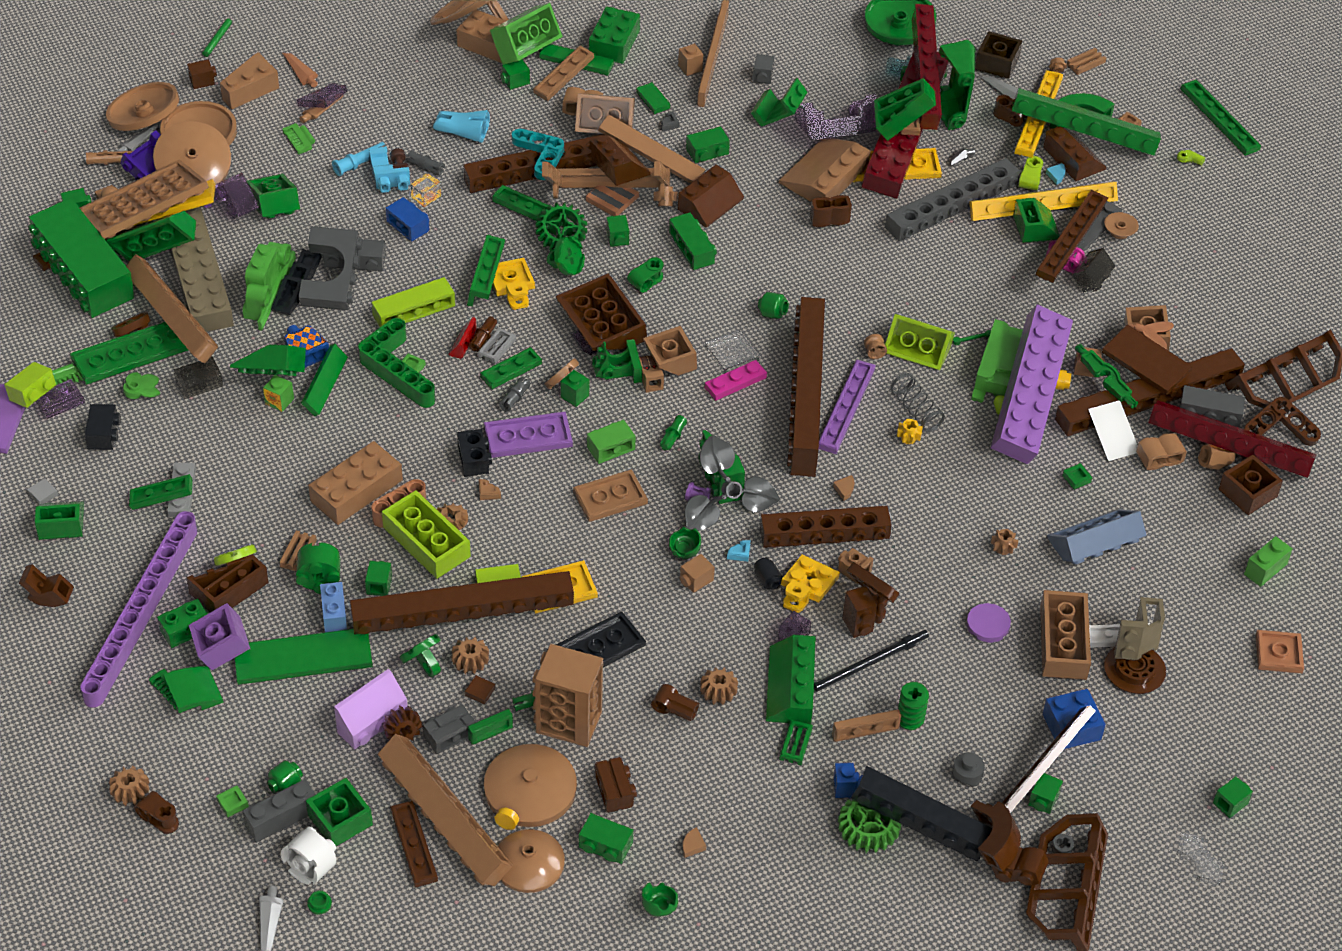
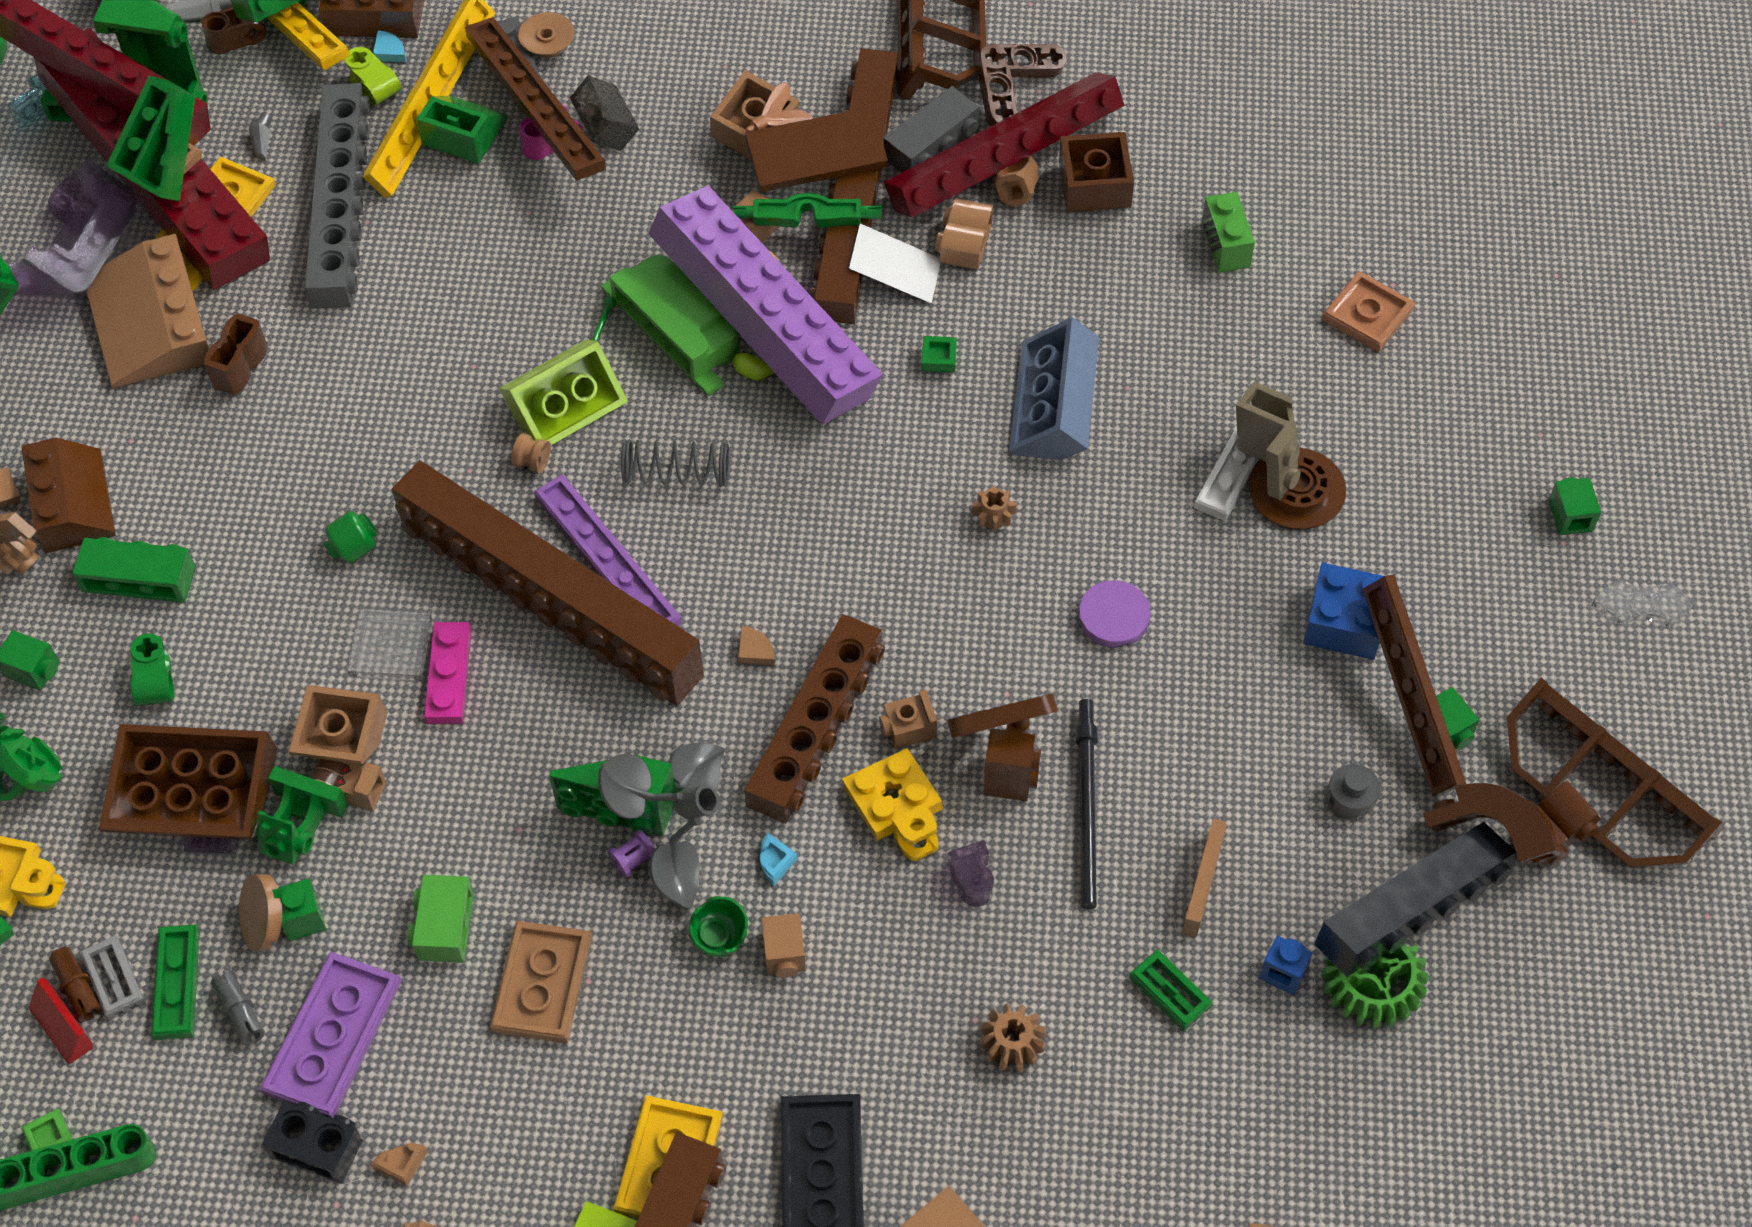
camera: 55 degrees left, 10 degrees up
(669, 700) = (997, 1125): reddish brown piece -> none
(673, 432) = (488, 819): green axle -> none
(768, 573) = (850, 846): black brick -> none
(791, 680) = (1063, 929): green slope -> none
(909, 431) = (718, 505): yellow gear -> none
(913, 705) = (1218, 795): green piece -> none
(1062, 839) = (1535, 763): dark grey bush -> none
(1065, 635) = (1206, 533): medium nougat brick -> none

